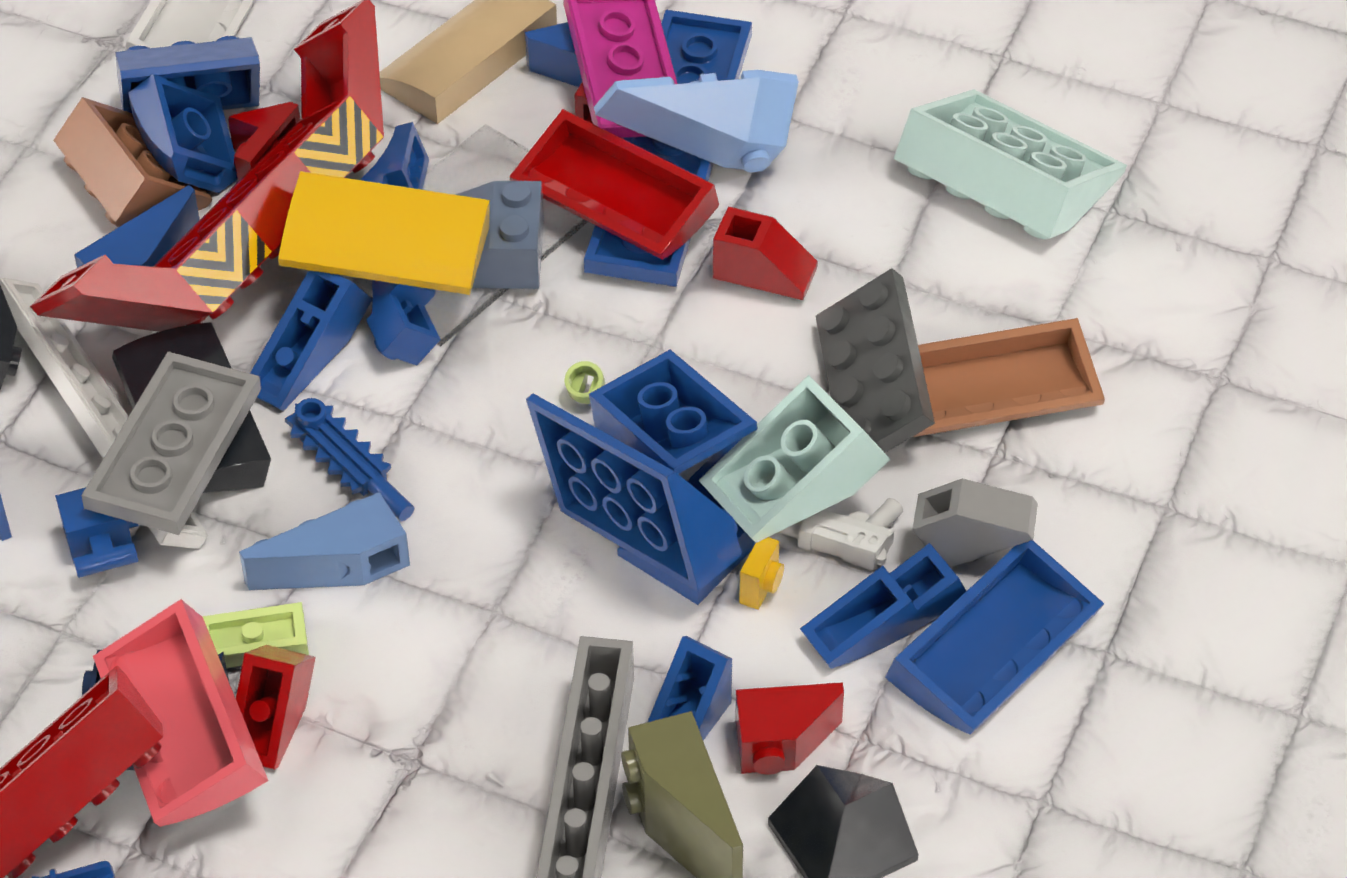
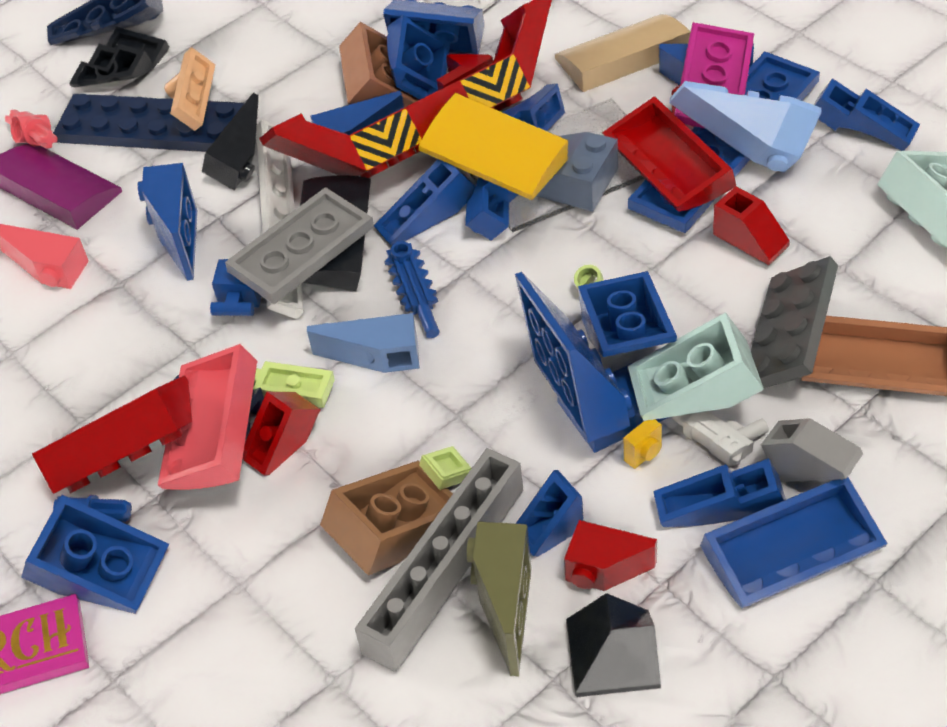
camera: 30 degrees right, 0 degrees up
(480, 765) = (383, 515): none -> medium nougat slope
(521, 681) = (445, 467): none -> yellowish green tile
(838, 67) = (865, 114): none -> blue slope

